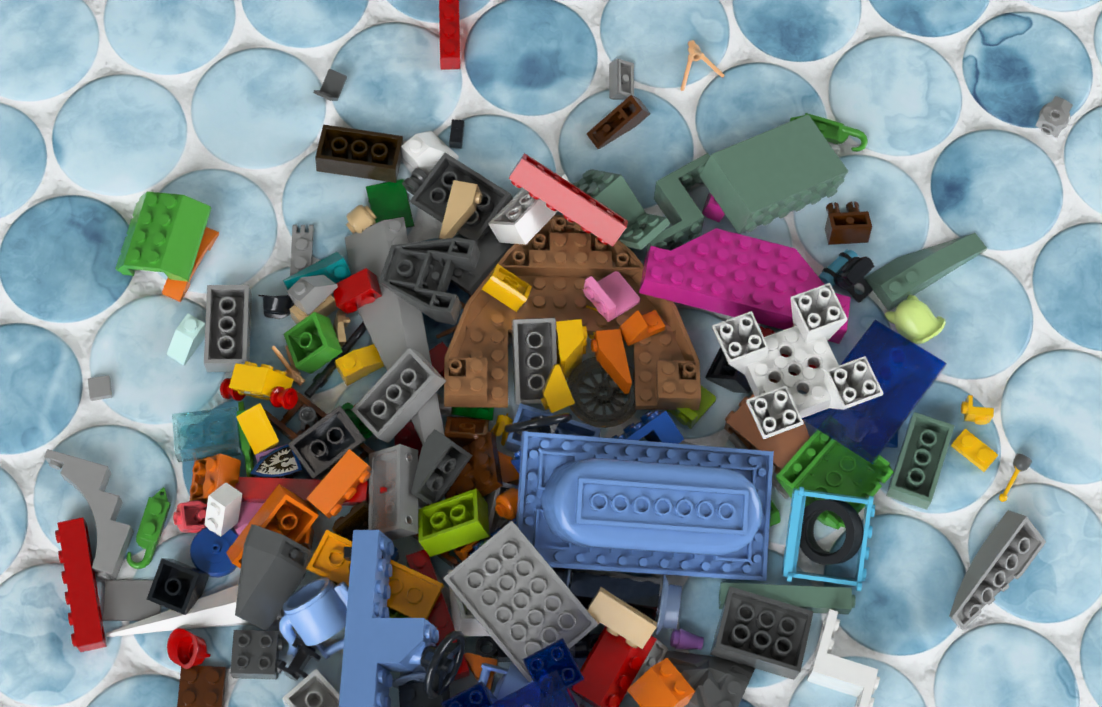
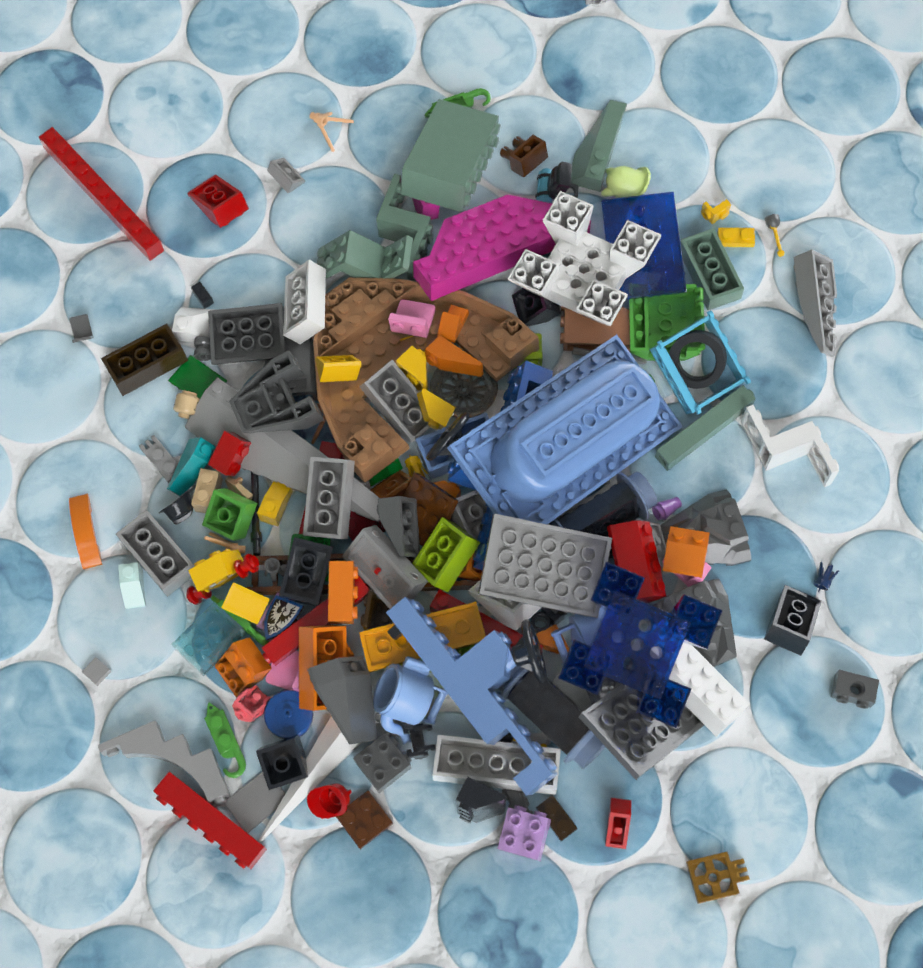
camera: 35 degrees left, 0 degrees up
(164, 235) = (49, 525): bright green slope -> none
(223, 509) = (270, 679): white brick -> none
(311, 292) = (199, 478): light grey slope -> none
(460, 207) = (254, 337): tan slope -> none
(507, 504) = (474, 508): orange head -> none
(542, 60) = (219, 200): none -> red slope
(568, 200) = (329, 273): brick -> none
(619, 121) = (309, 203): reddish brown slope -> none
(621, 618) = (621, 523): tan brick -> none
(762, 633) = (713, 461): dark grey slope -> none

